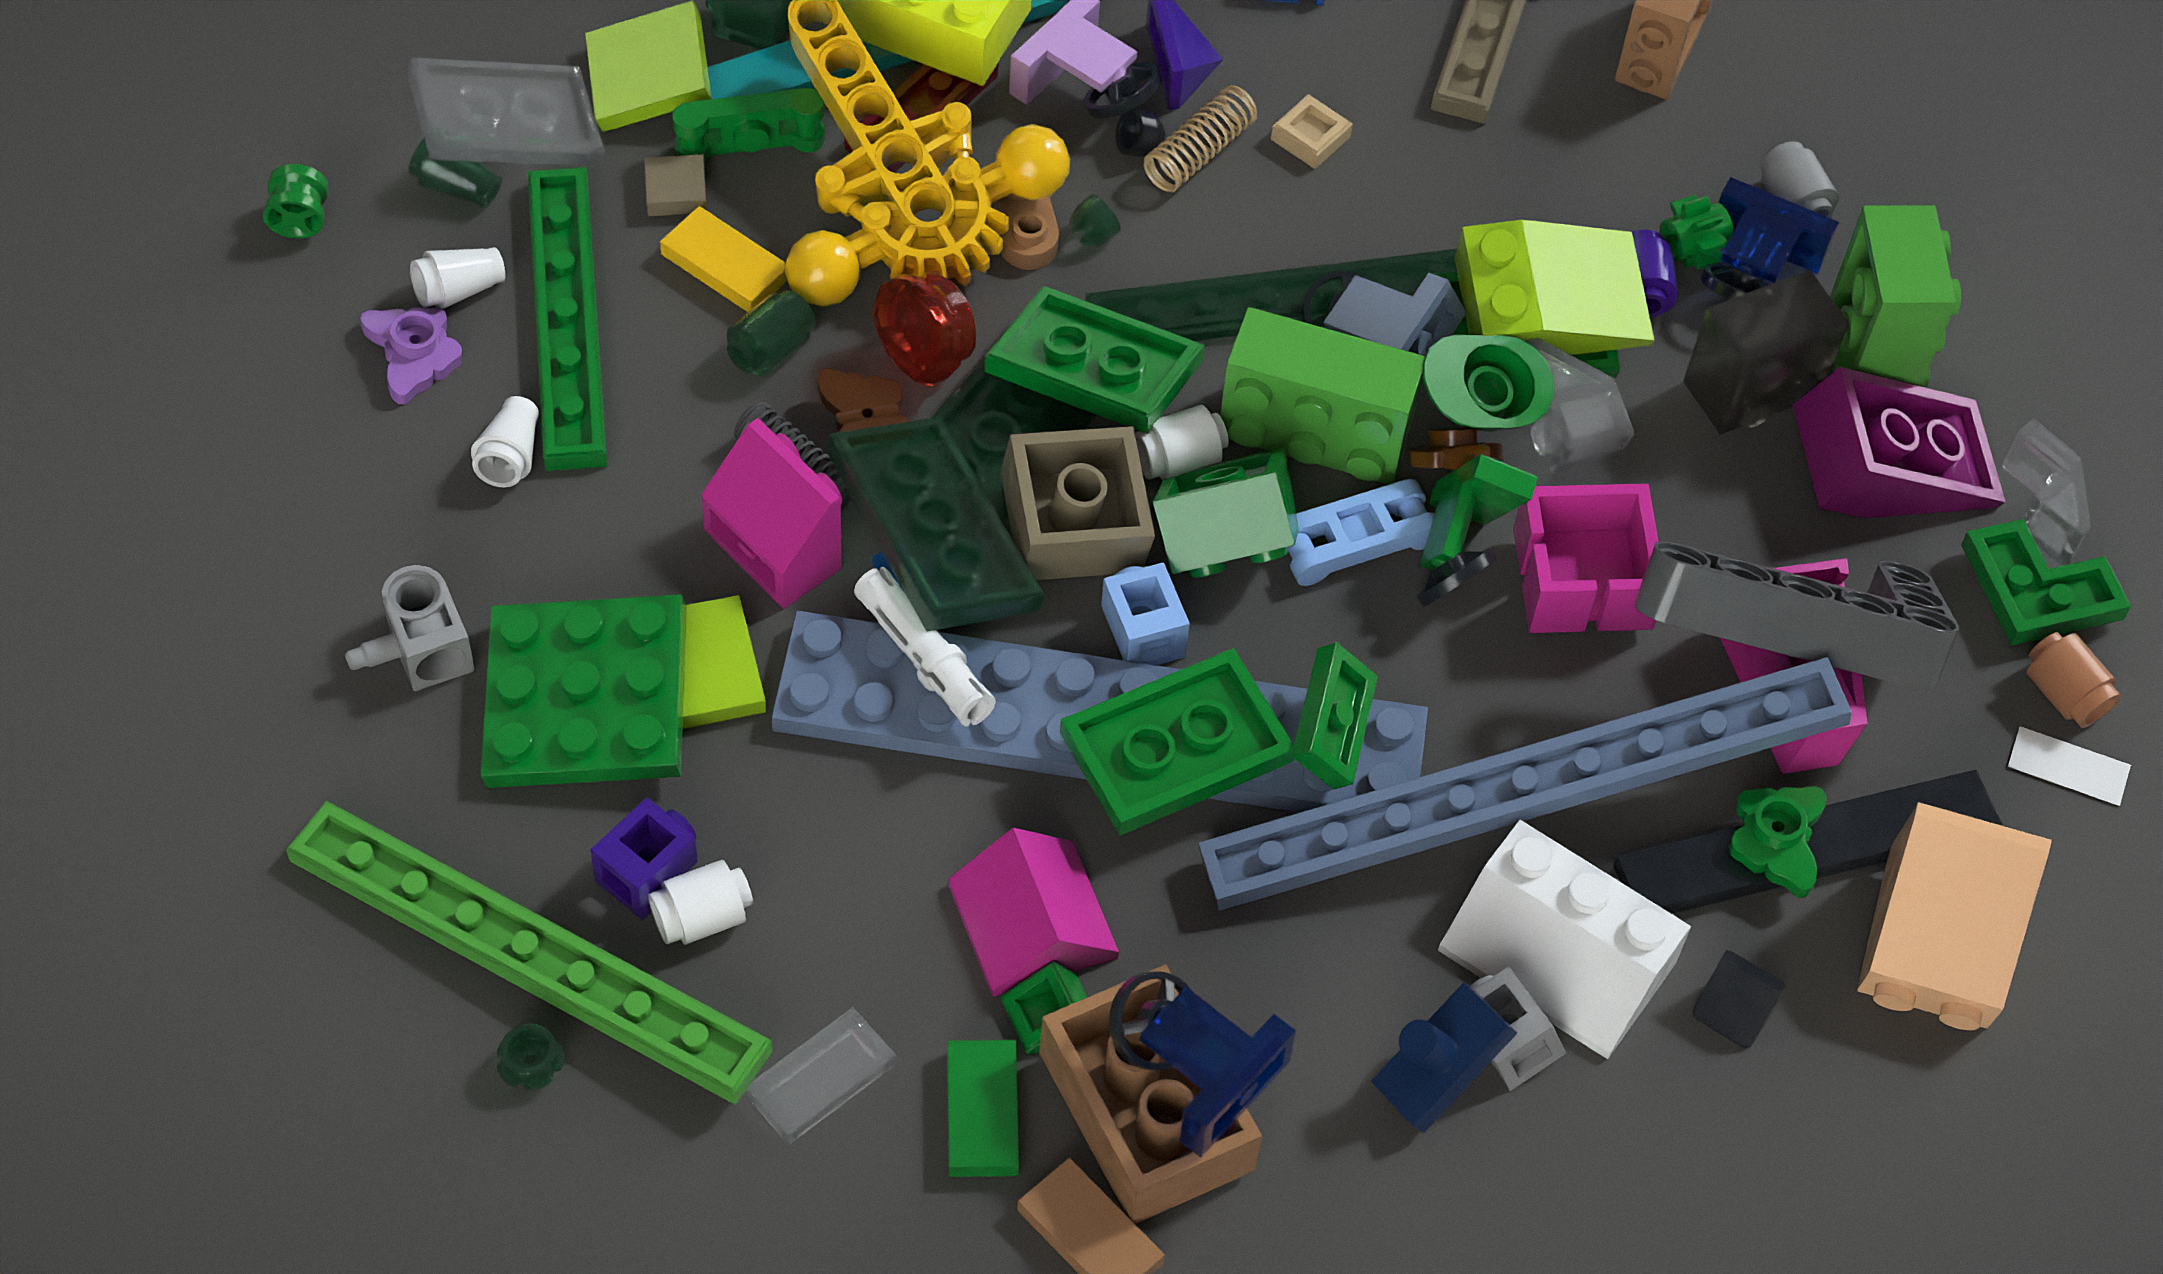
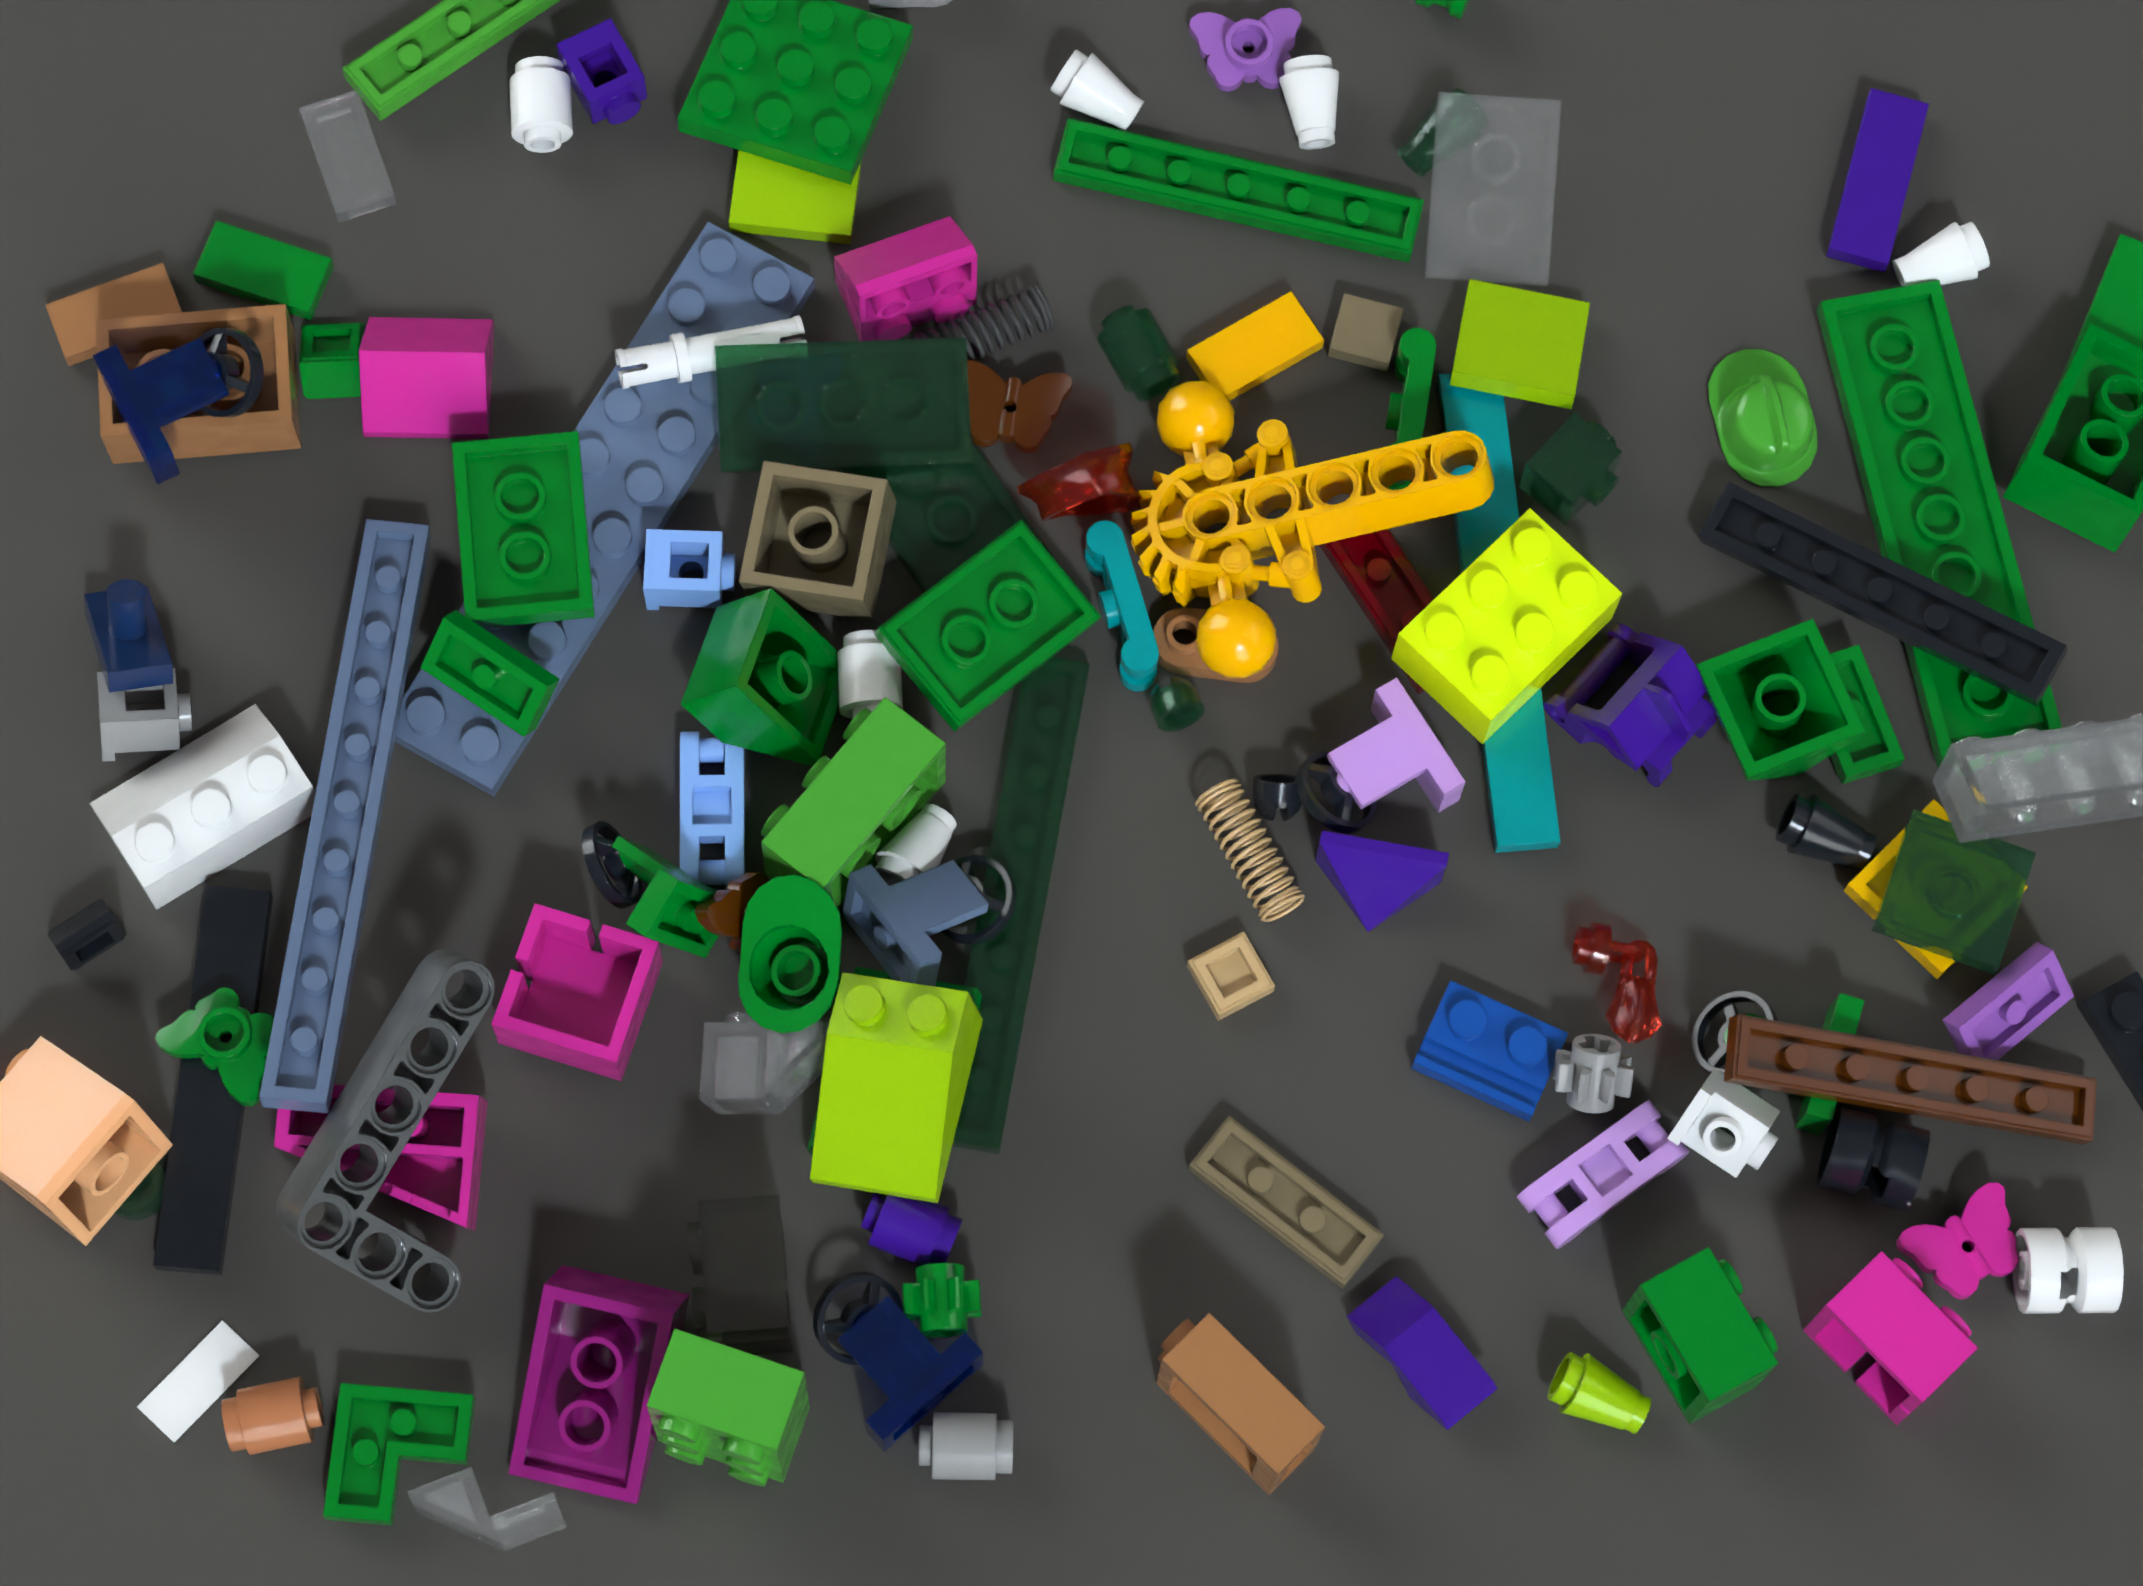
camera: 110 degrees right, 15 degrees up
(1020, 274) = (1123, 604): none -> teal plate

